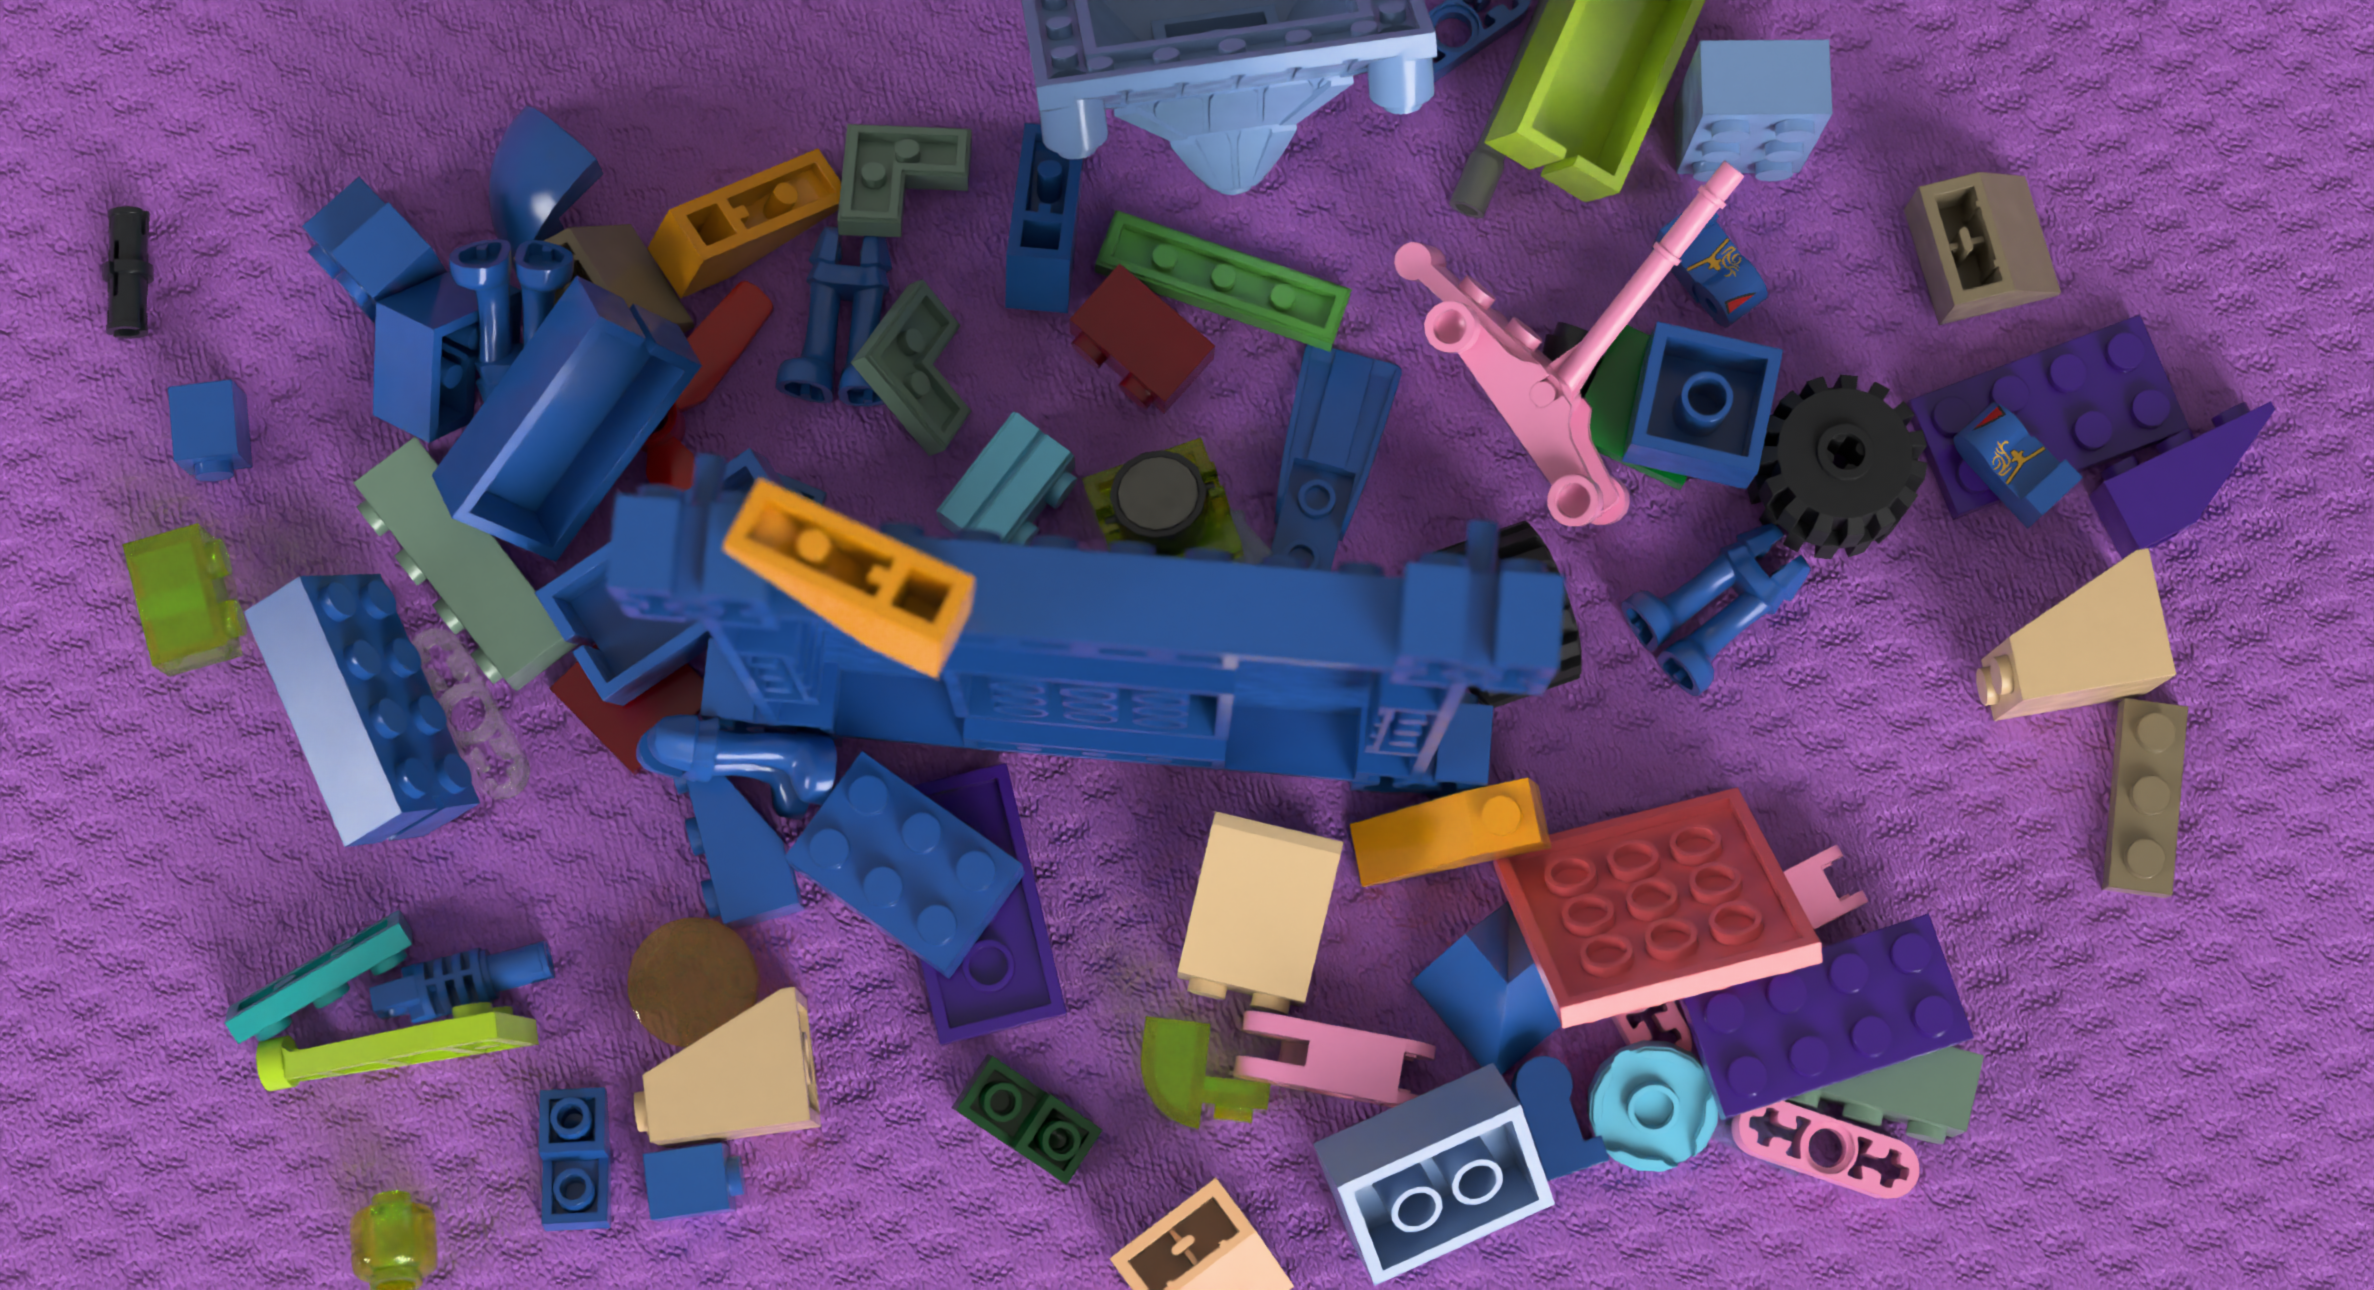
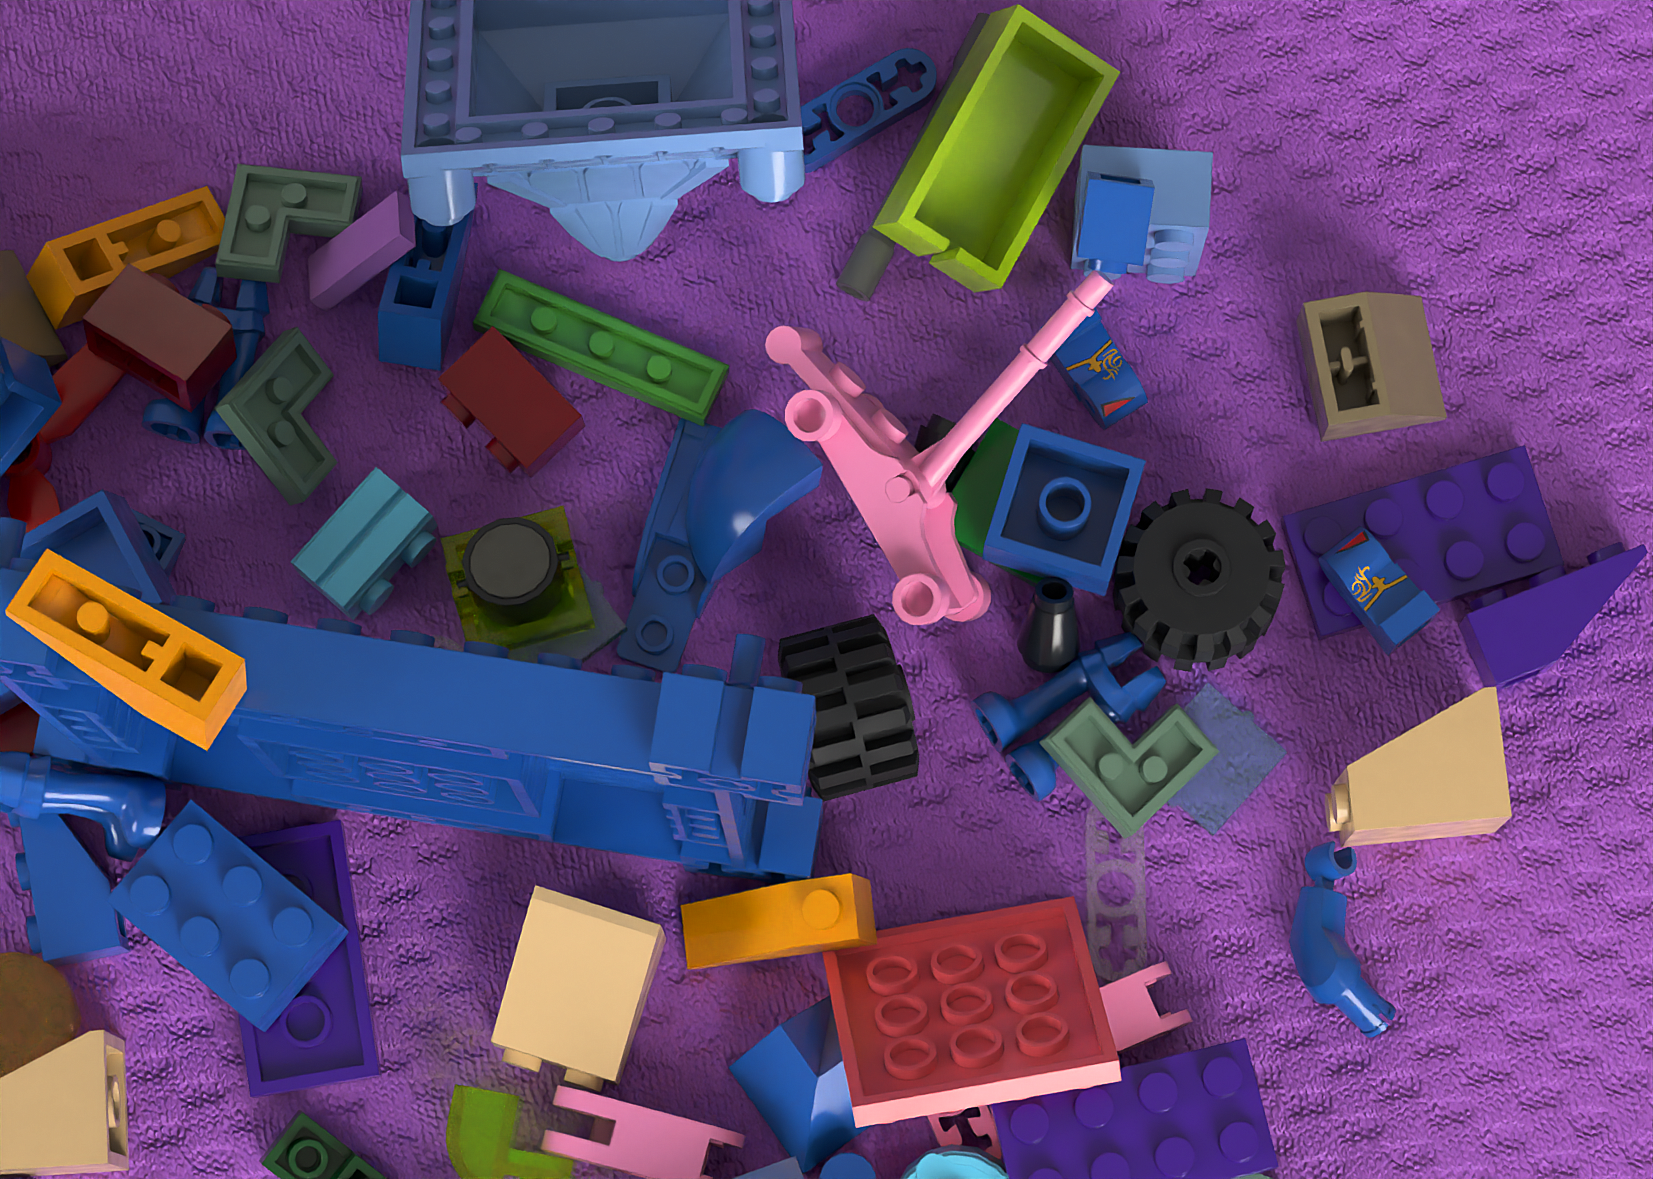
camera: 10 degrees right, 0 degrees up
(790, 295) = (160, 336): none -> dark red brick
(980, 200) = (361, 251): none -> medium lavender tile
(1378, 401) = (740, 483): none -> blue brick
(1693, 525) = (1050, 627): none -> black cone
(1742, 112) = (1114, 221): none -> blue brick
(1782, 665) = (1124, 777): none -> sand green tile
(1792, 729) = (1100, 938): none -> clear beam
(1858, 643) = (1235, 771): none -> clear light blue piece
(1985, 819) = (1319, 944): none -> blue arm
(2145, 798) = (1485, 936): dark tan plate -> none

